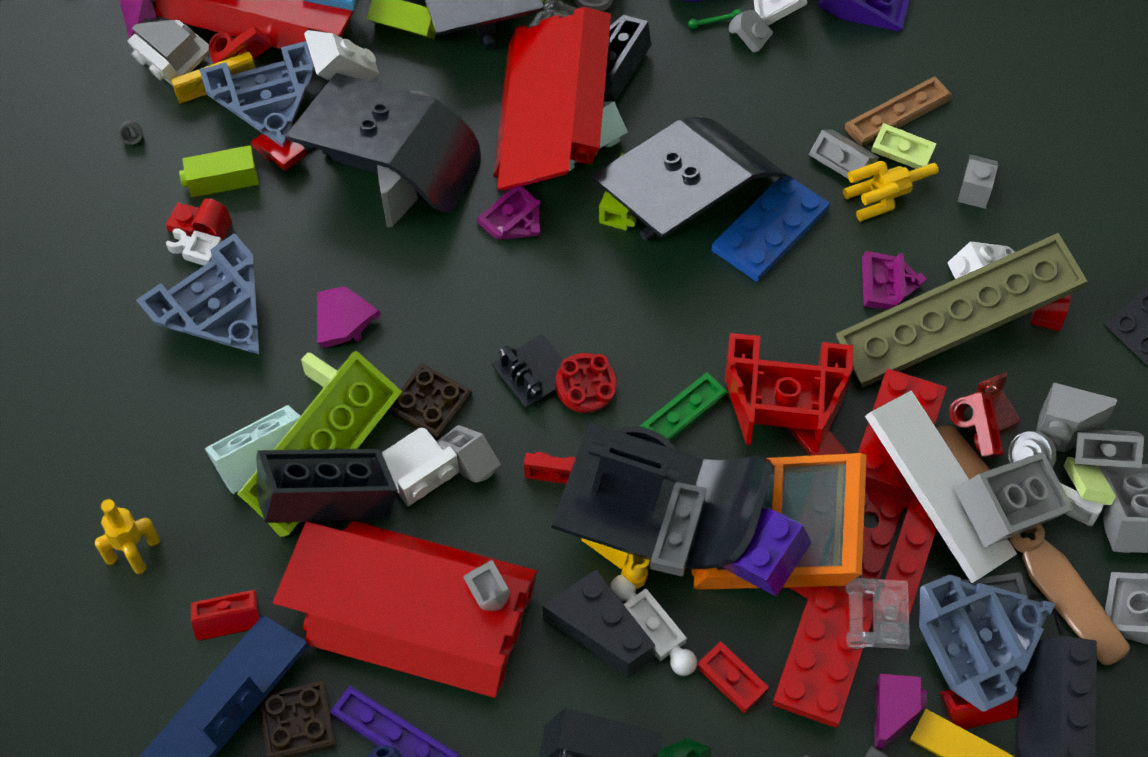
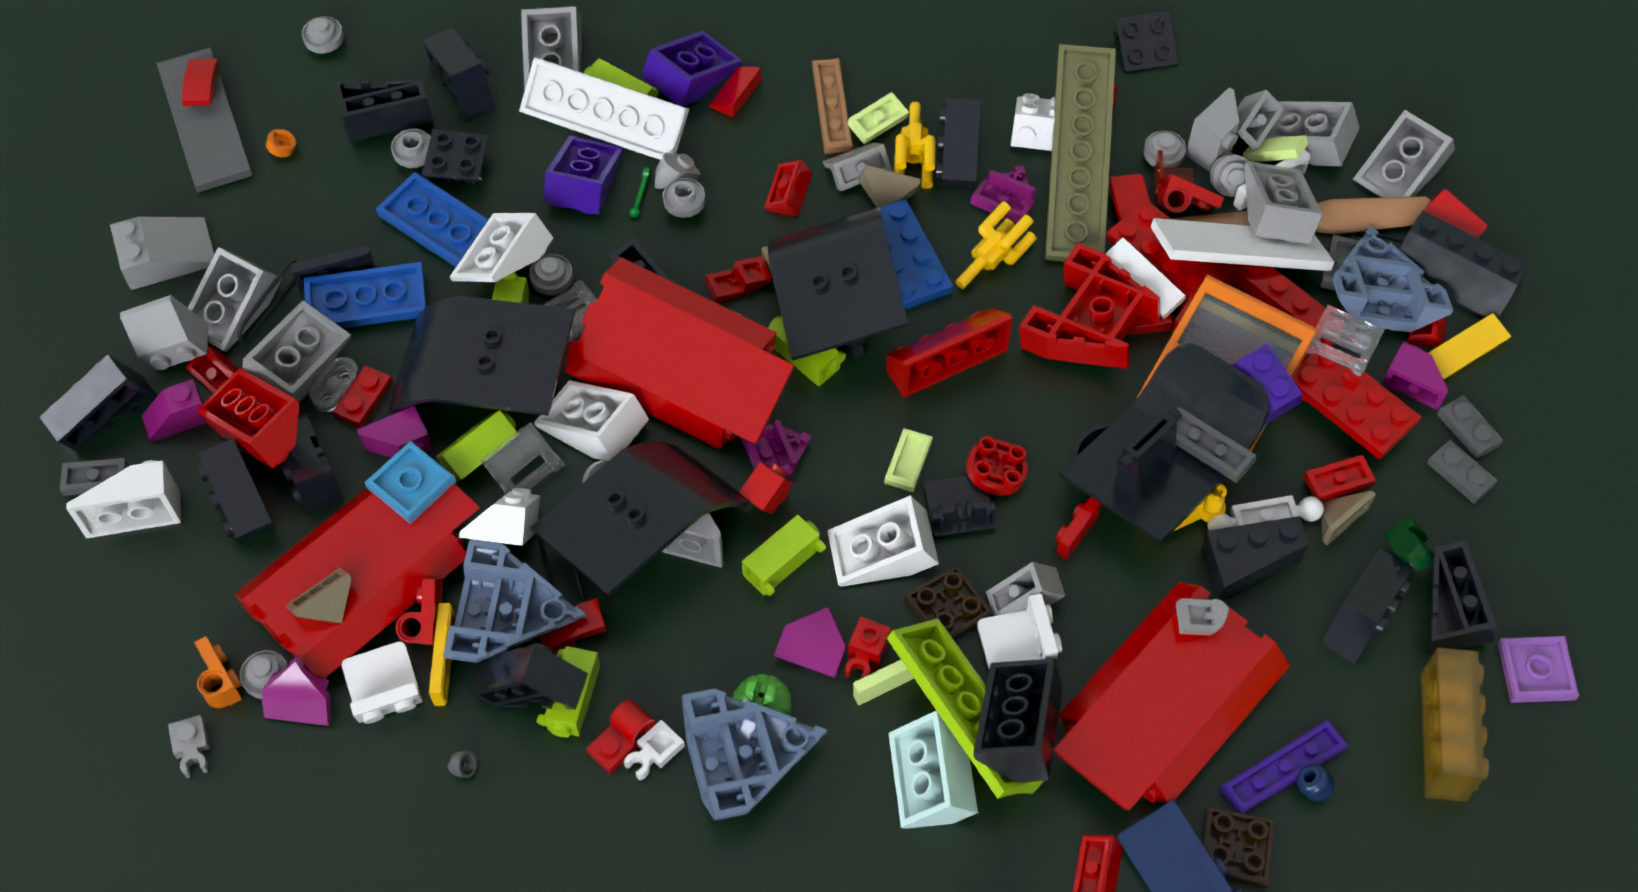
camera: 65 degrees left, 0 degrees up
(169, 40) = (373, 675): light grey slope -> none
(204, 133) = (528, 676): none -> black wedge
(276, 302) = (772, 688): none -> bright green hair
(349, 342) = (867, 647): none -> red brick
(410, 43) = (516, 454): none -> clear plate
(412, 258) = (782, 554): none -> lime brick
(460, 216) = (767, 487): none -> red brick
(461, 328) = (883, 544): none -> white slope
(471, 80) = (594, 419): none -> white slope
(559, 315) = (908, 460): none -> yellowish green tile
(660, 114) = (743, 279): none -> red slope
(681, 296) = (949, 351): none -> red slope
(687, 407) = (1059, 403): green tile -> none
(693, 693) = (1342, 512): none -> dark tan slope
(724, 46) = (684, 197): none -> light grey plate
(787, 118) = (788, 188): none -> red slope
(820, 289) = (998, 243): none -> yellow plant
(829, 183) = (887, 186): none -> dark tan slope
(850, 415) = (1144, 273): none -> white tile
(865, 39) = (737, 90): none -> red slope
(912, 216) = (959, 143): none -> black wedge
(952, 373) = (1127, 193): none -> red slope
(978, 181) = (941, 80): light grey slope -> none
(1027, 388) = (1171, 144): none -> light grey plate
(1115, 681) = (1454, 212): none -> red slope

